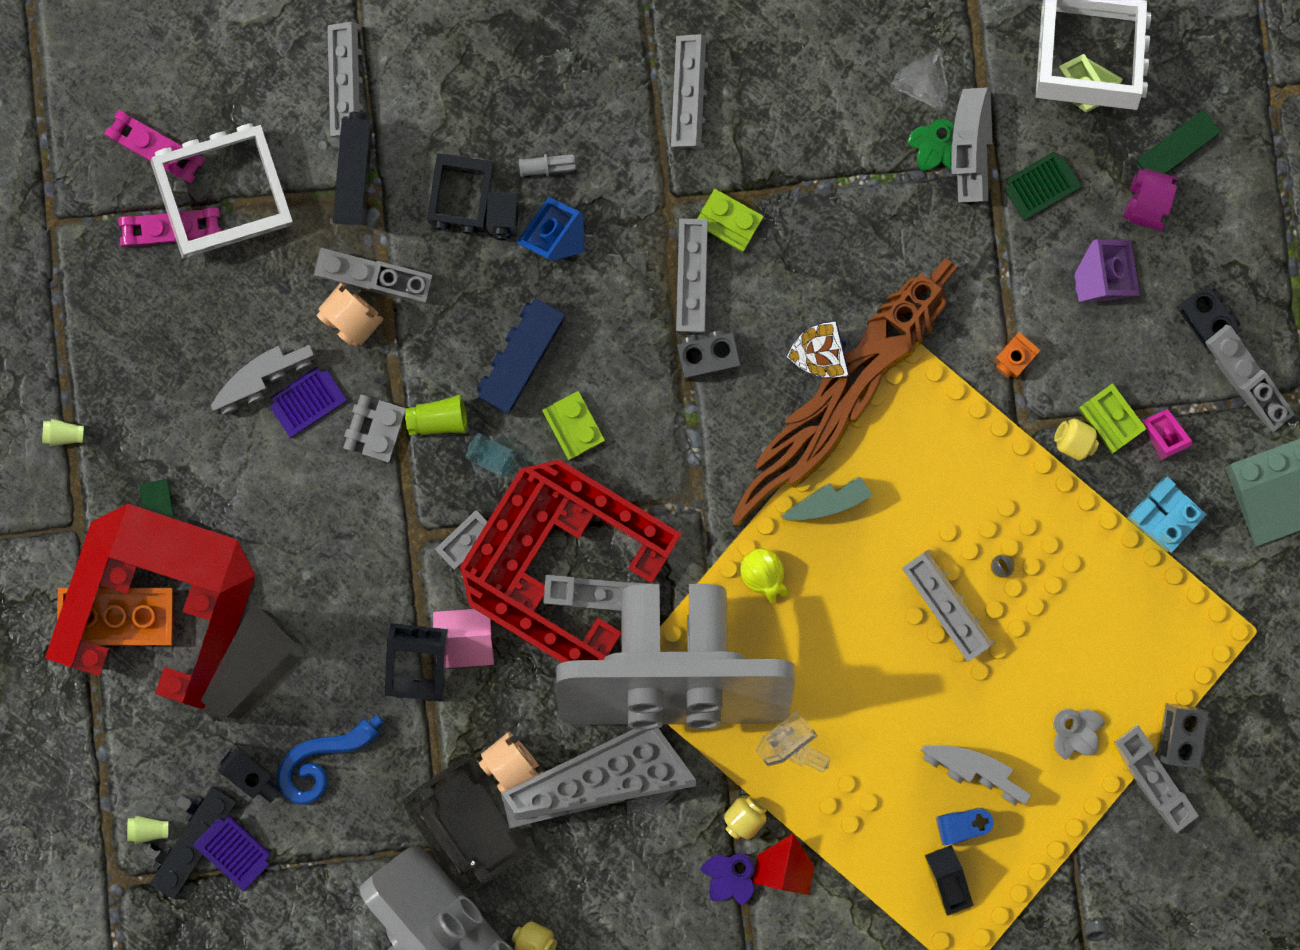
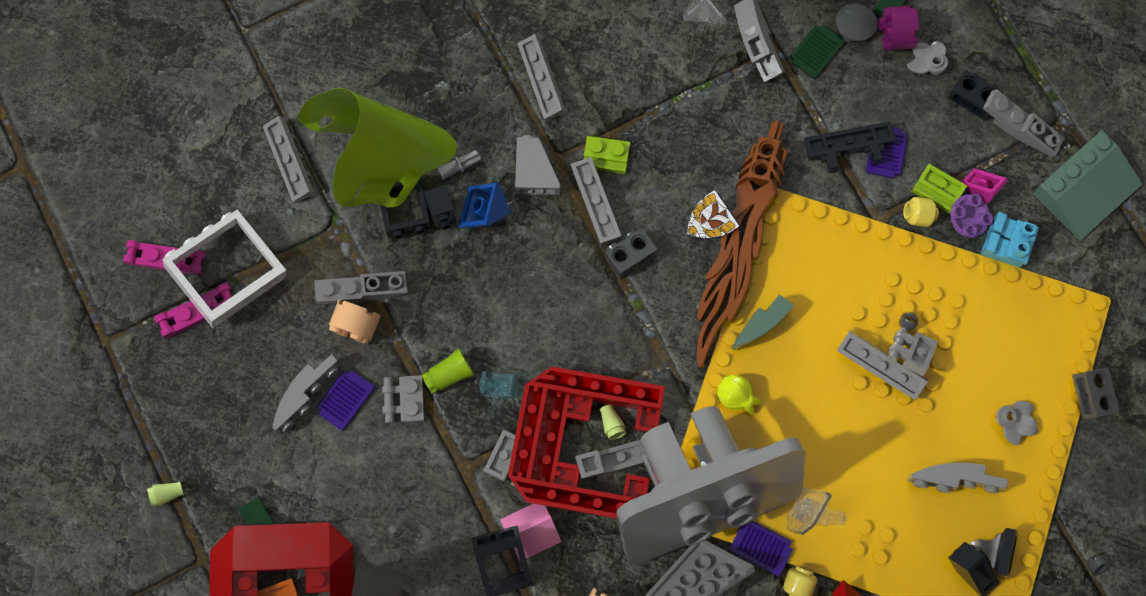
camera: 20 degrees left, 10 degrees down
(353, 170) = (318, 215): black slope -> none
(470, 124) = (383, 150): none -> lime piece
(521, 357) = (493, 304): dark blue brick -> none
(573, 425) = (551, 341): lime plate -> none
(605, 552) = (612, 423): none -> yellowish green cone
(633, 205) = (534, 169): none -> light grey slope
(719, 760) = (761, 547): none -> dark purple window
(931, 147) = (730, 52): green plate -> none
(958, 825) = (964, 526): blue piece -> none
(987, 871) = (999, 551): none -> black piece
(995, 610) = (919, 353): none -> light grey plate
(1019, 344) = (853, 162): orange brick -> none
(1050, 322) = (867, 138): none -> black hinge
(1071, 346) = (892, 157): none -> dark purple window
(1104, 169) = (856, 22): none -> dark grey dish
(1107, 272) = (889, 90): medium lavender slope -> none
(1135, 466) = (970, 216): none -> medium lavender dish
(1154, 779) = (1090, 436): light grey slope -> none
(1172, 245) = (926, 57): none -> light grey plate

